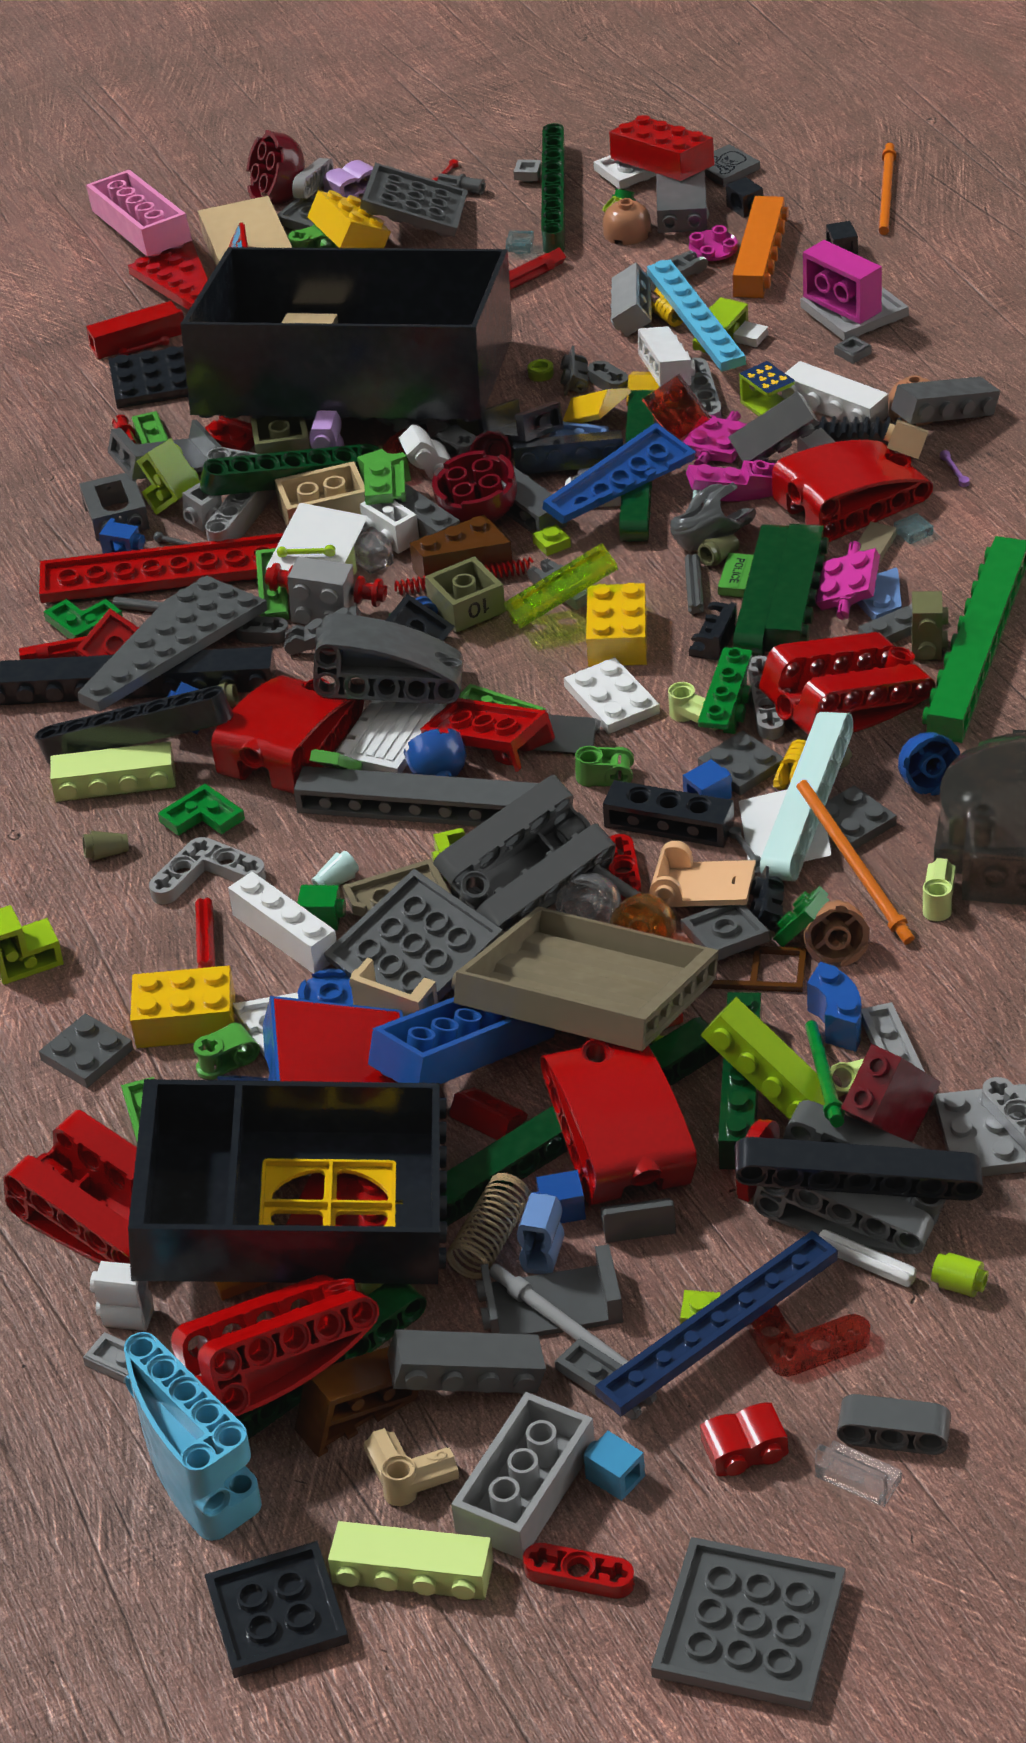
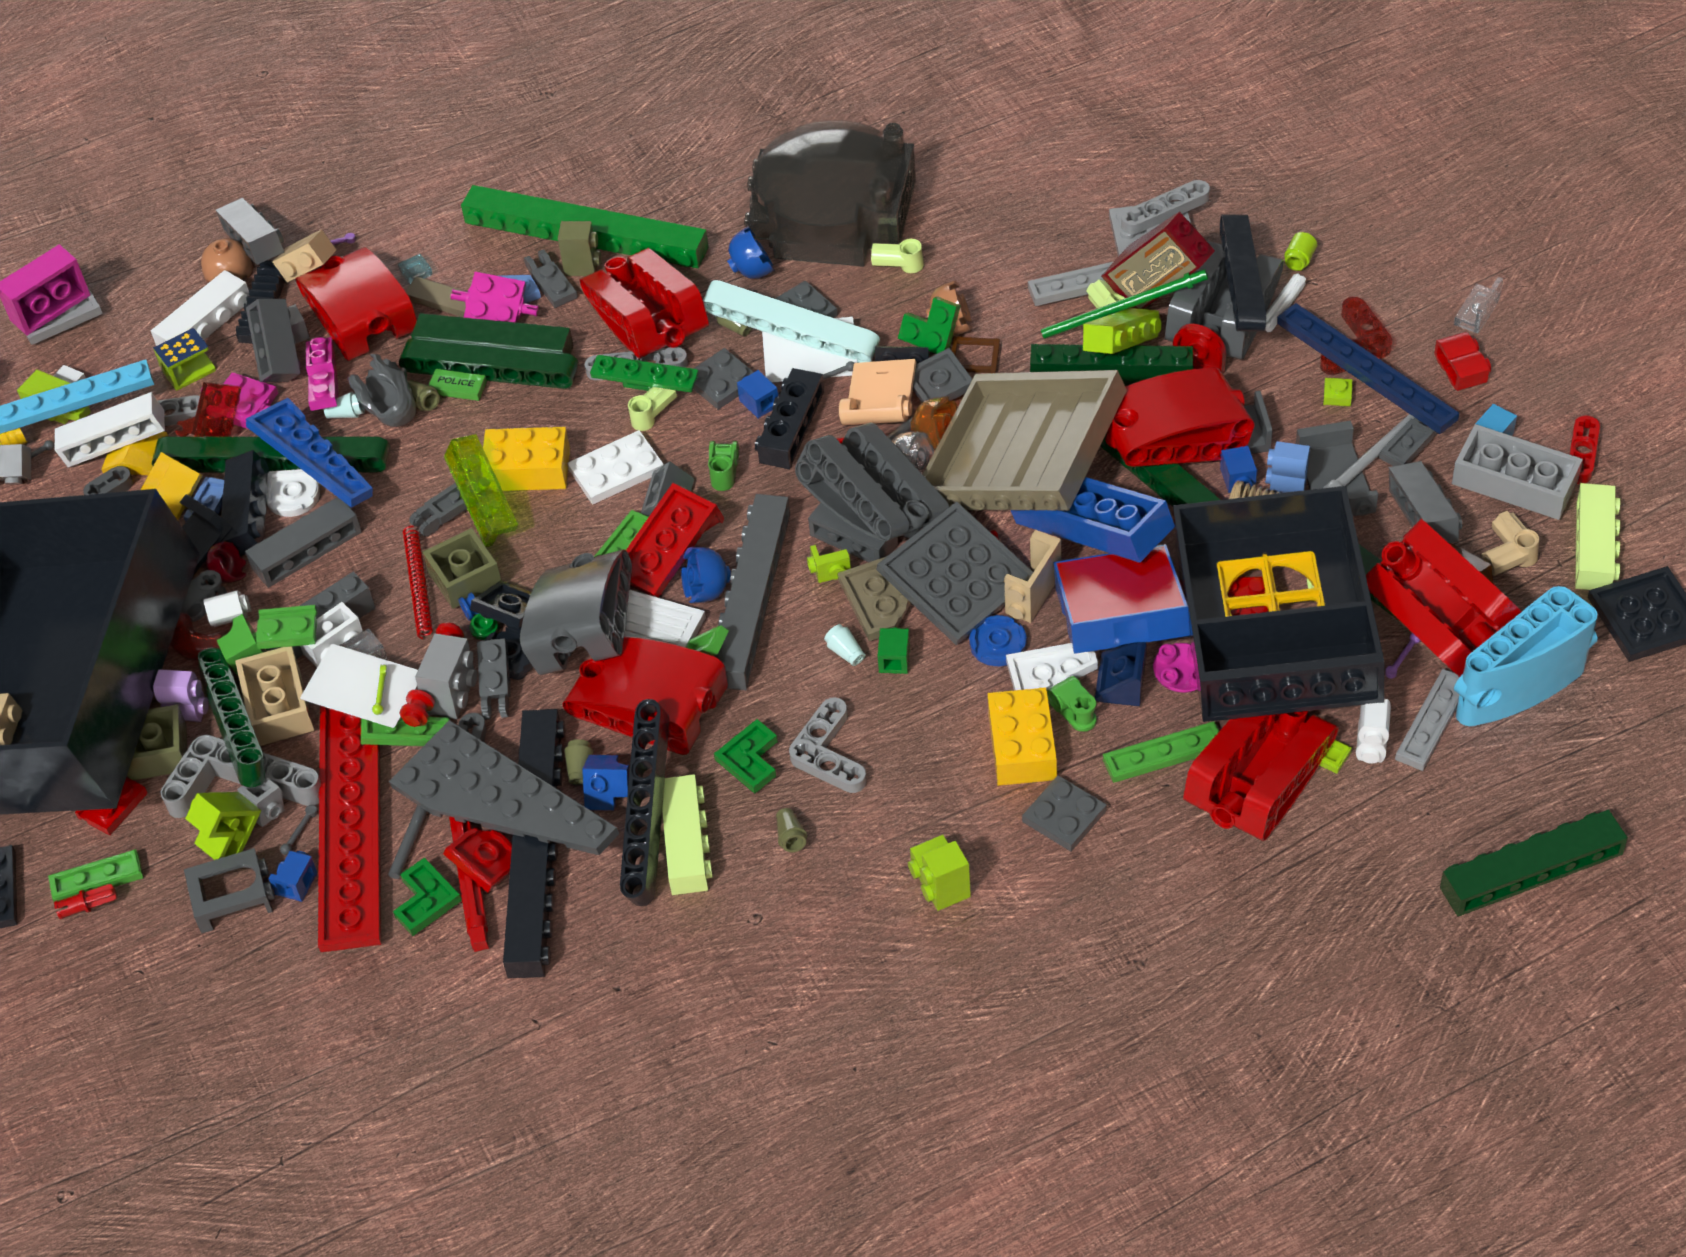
camera: 90 degrees left, 10 degrees up
(126, 452) = (152, 842): dark grey panel -> none
(205, 933) = (916, 738): red axle -> none
(281, 921) = (914, 673): white brick -> none
(458, 543) = (385, 572): reddish brown wedge -> none
(473, 486) = (308, 570): dark red cylinder -> none
(551, 540) = (372, 519): lime plate -> none
(694, 584) = (465, 413): dark grey axle -> none
(715, 632) = (542, 394): black hinge -> none
(749, 1623) = (1614, 358): dark grey plate -> none
(788, 764) = (733, 340): yellow hinge -> none
(837, 1003) = (1031, 311): blue brick -> none
(852, 349) = (118, 308): dark grey tile -> none
(894, 1424) = (1438, 286): dark grey beam -> none
(896, 922) = (932, 282): orange bar -> none

